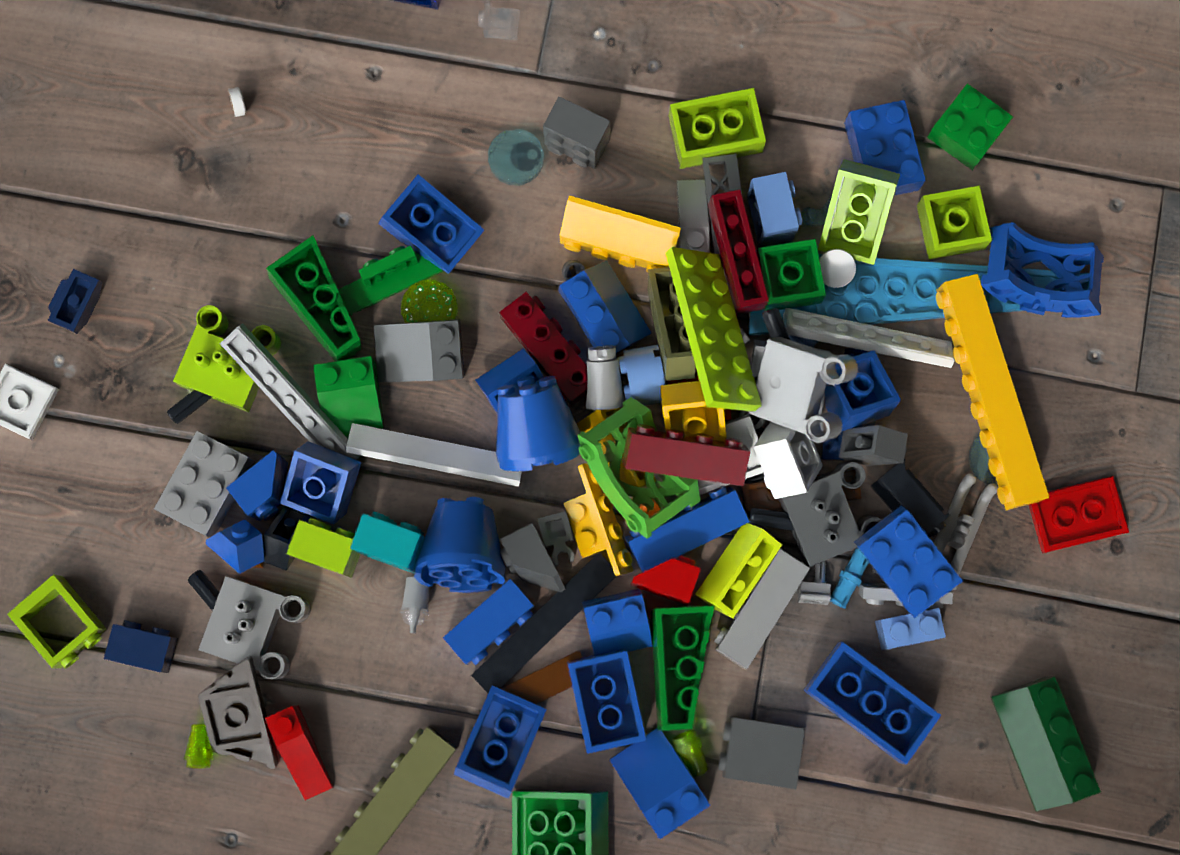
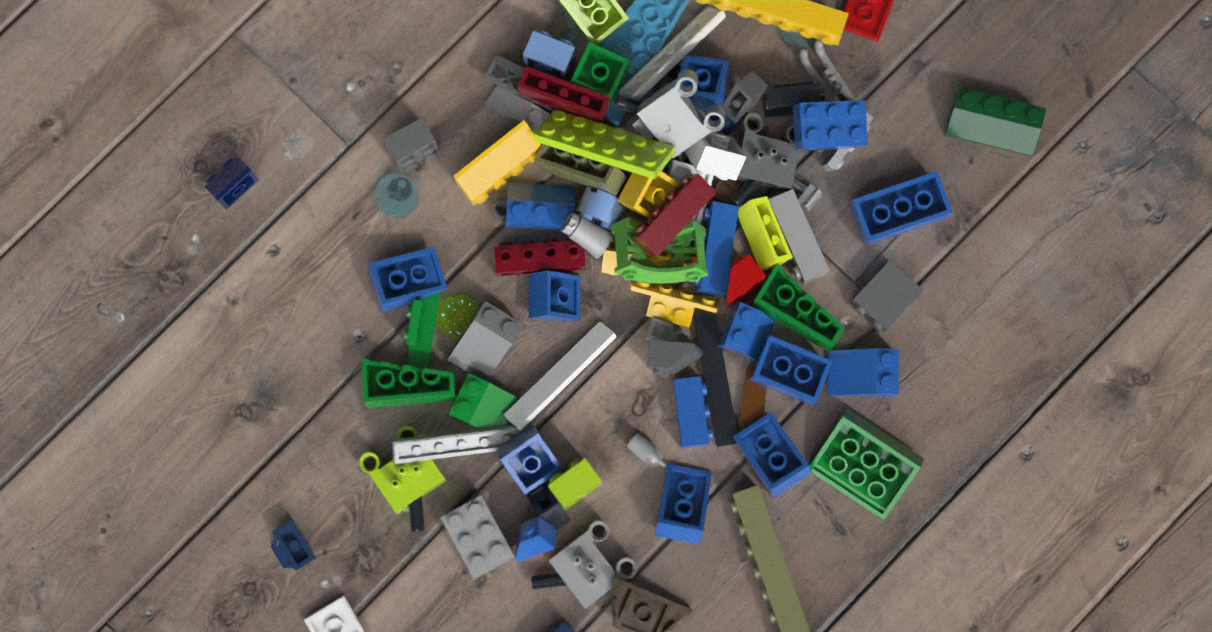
camera: 55 degrees left, 0 degrees up
(237, 101) = (231, 351): white tile -> none
(261, 487) = (507, 502): blue slope -> none
(299, 751) = (693, 587): red slope -> none
(384, 680) = (683, 504): none -> blue slope
(388, 543) = (601, 438): teal brick -> none
(461, 548) = (633, 396): blue cone -> none
(534, 425) = (588, 297): blue cone -> none
(691, 752) = (853, 340): clear neon green cone -> none
(717, 127) = (469, 54): lime brick -> none
(837, 268) = (615, 41): white piece -> none
(849, 579) = (815, 170): dark azure pin -> none
(907, 630) = (871, 155): medium blue brick -> none

